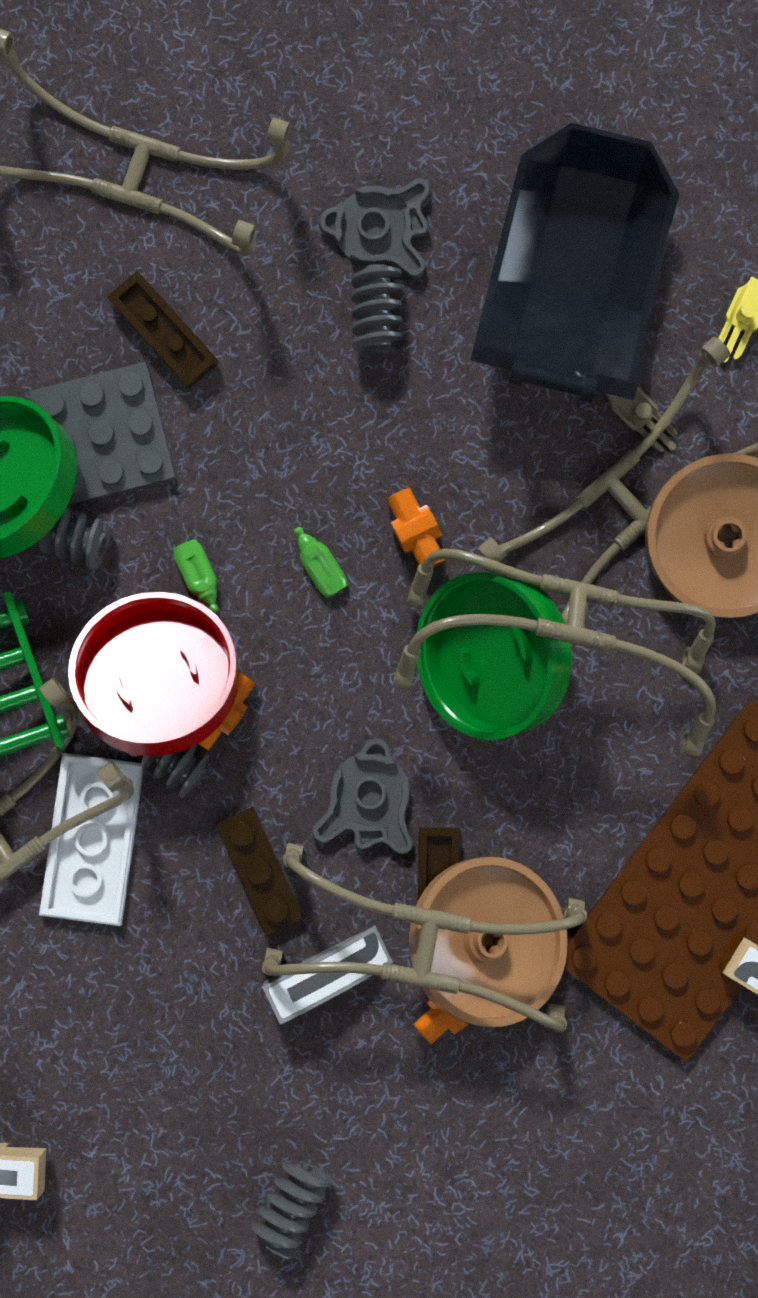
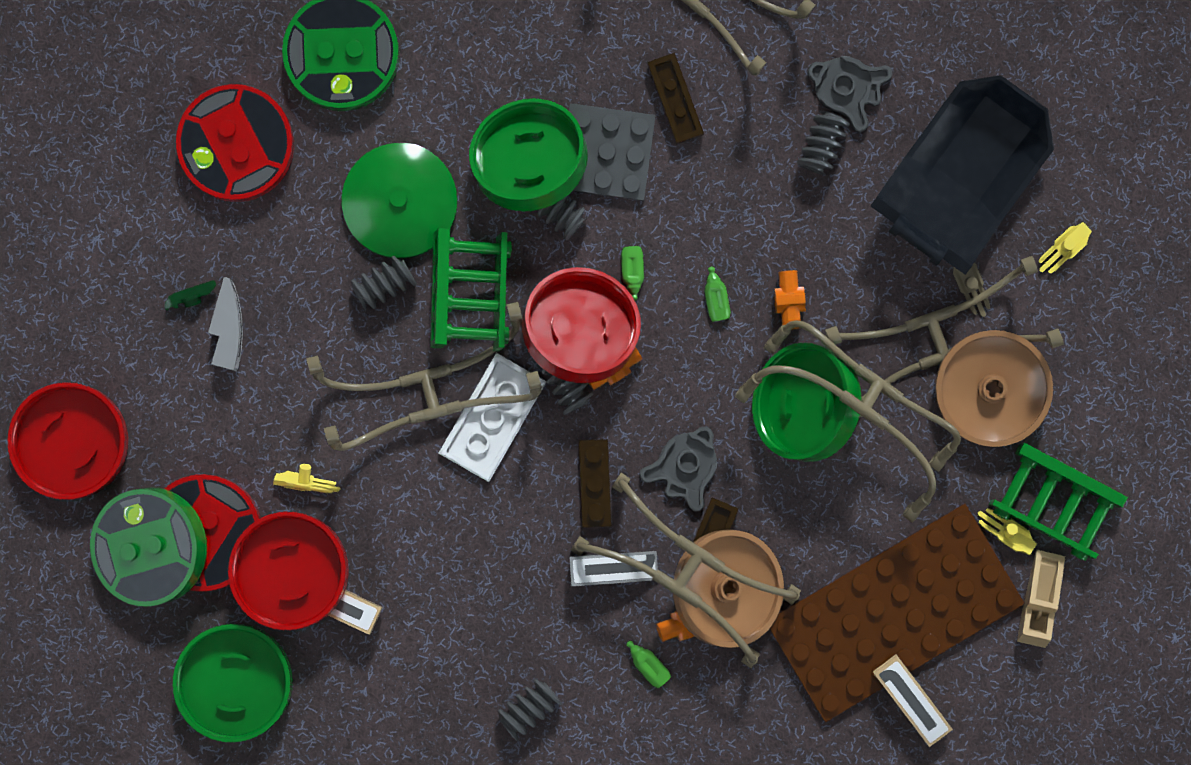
camera: 10 degrees right, 0 degrees up
(426, 1081) = (649, 665): none -> bright green piece

